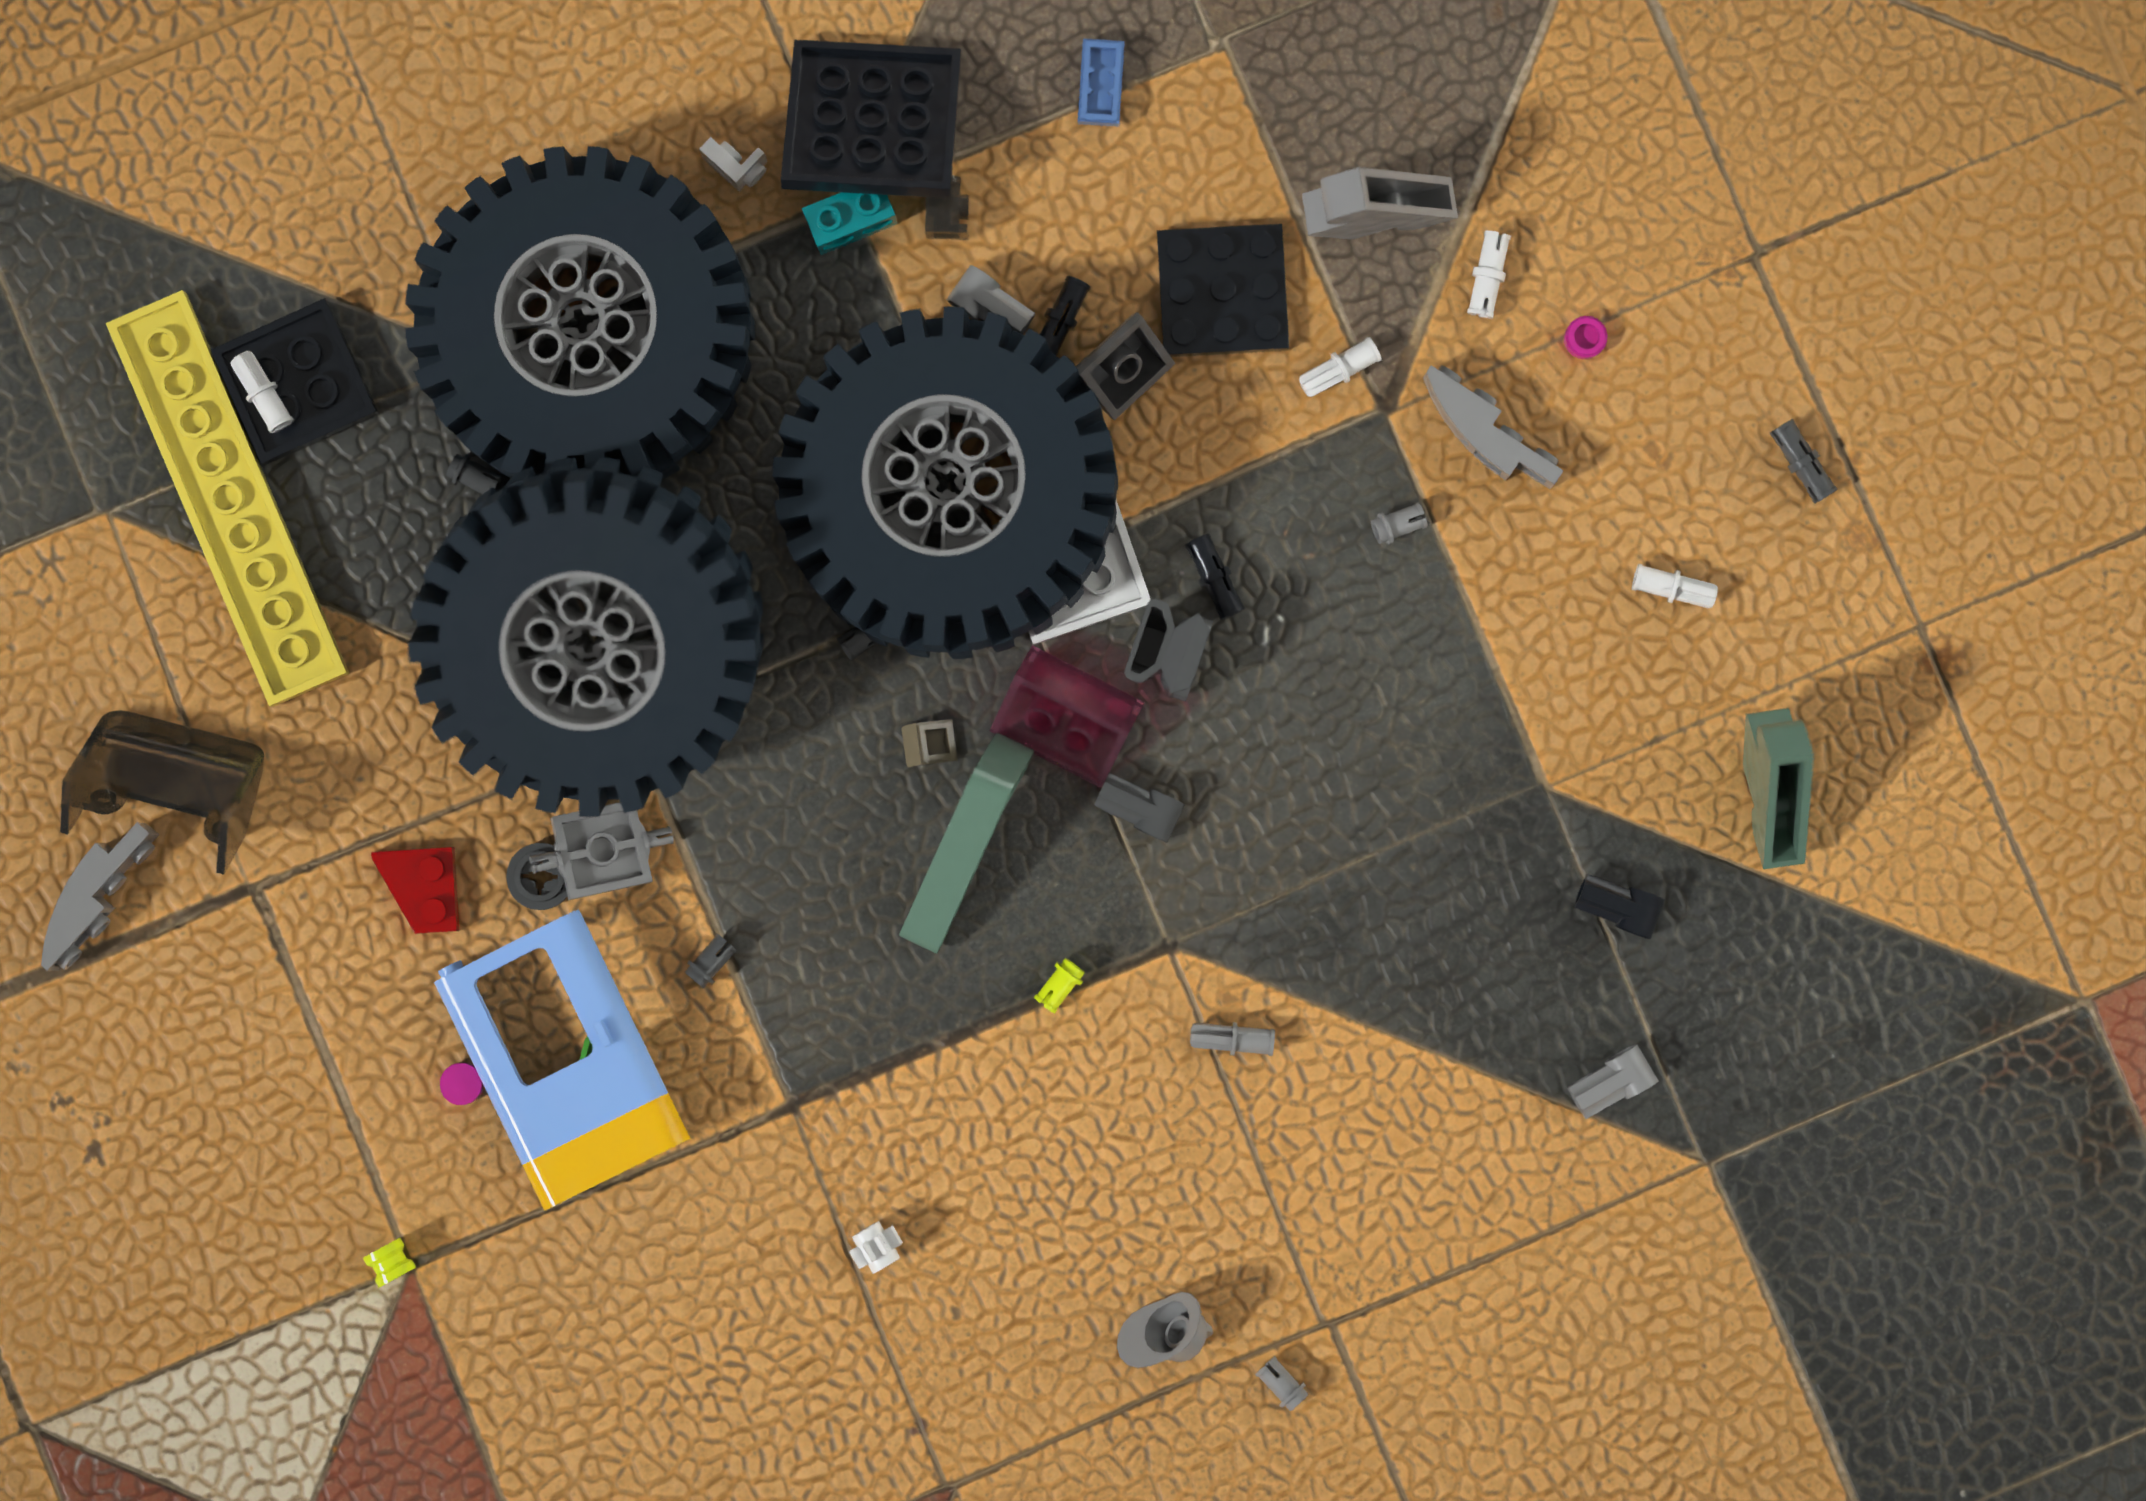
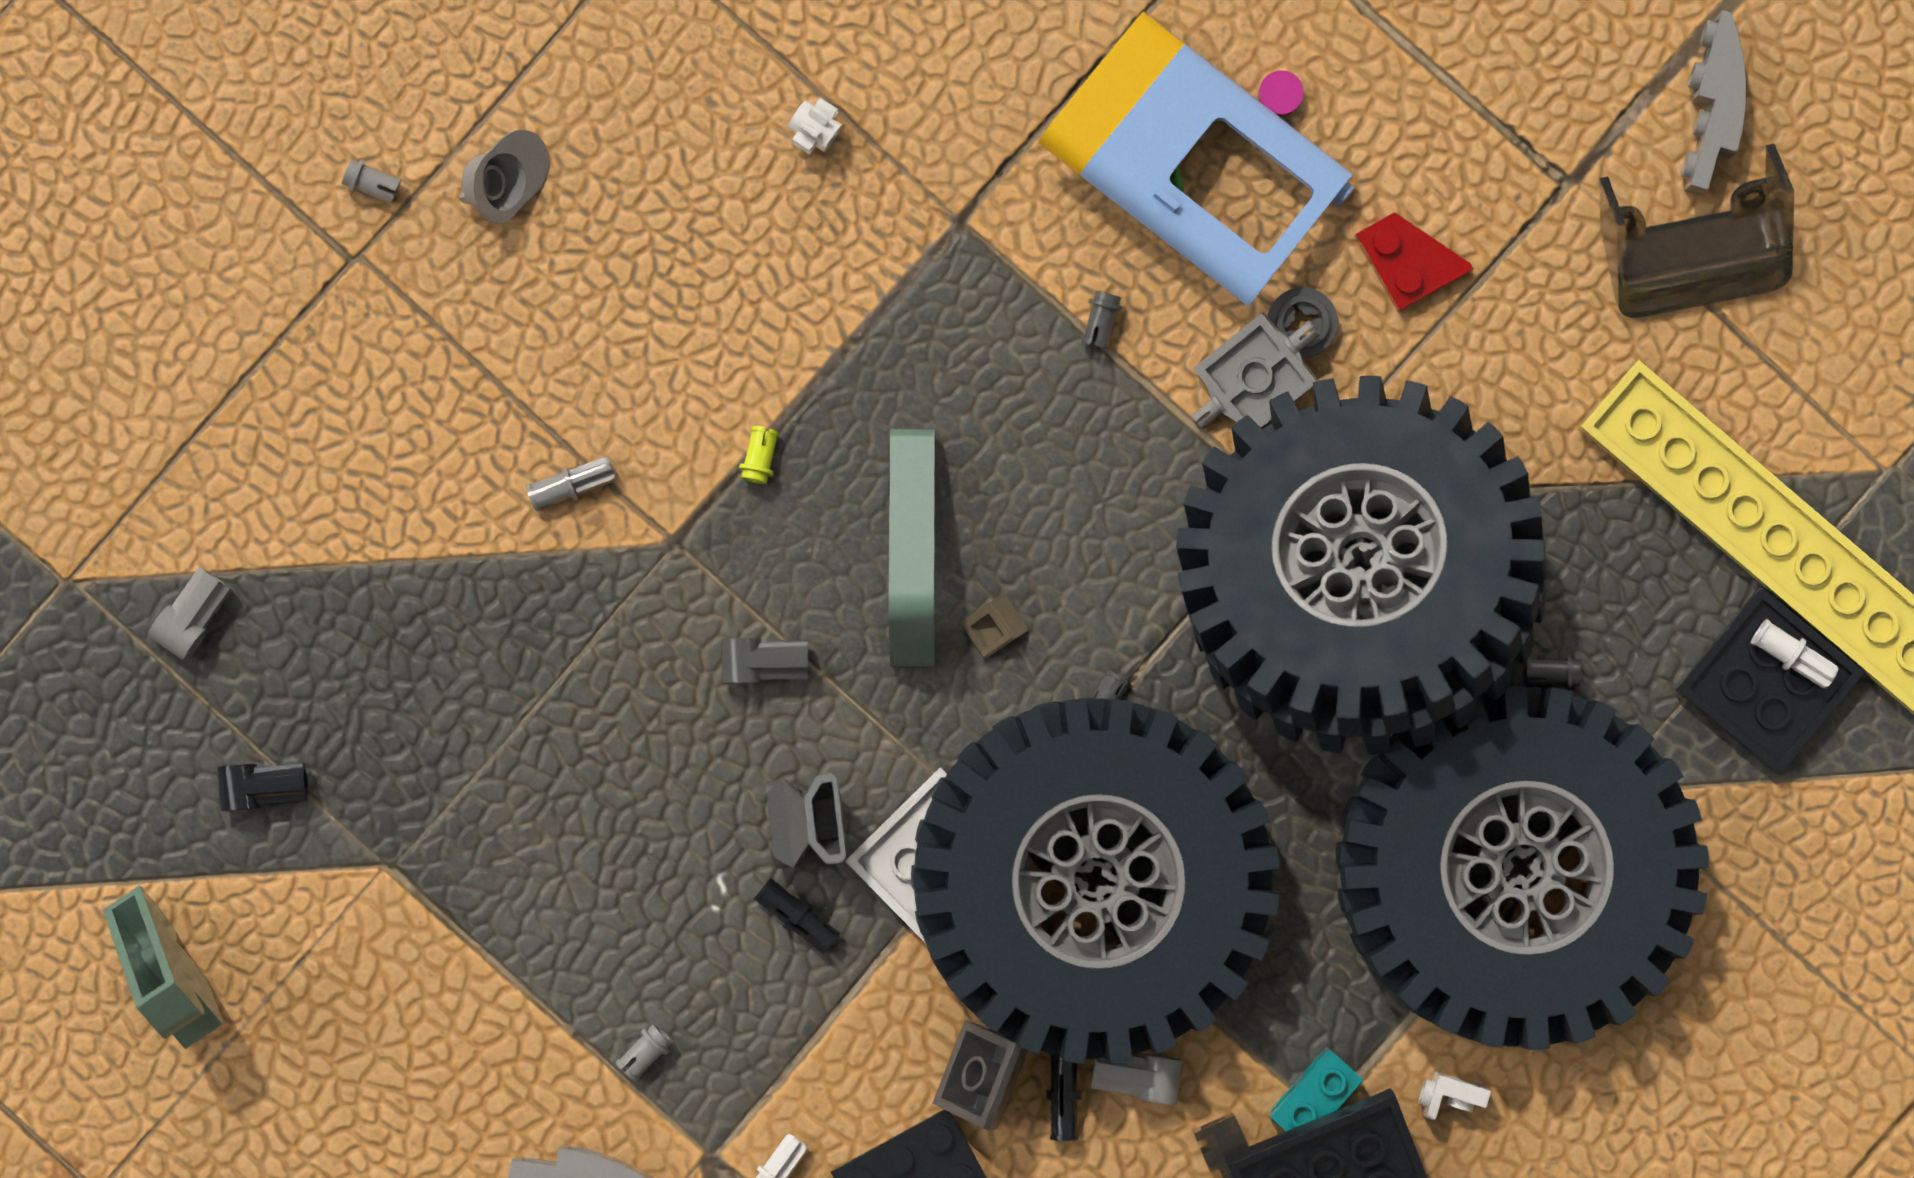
camera: 150 degrees right, 0 degrees up
(1067, 716) = (873, 714): clear pink slope -> none
(1674, 586) = (351, 1118): white axle -> none

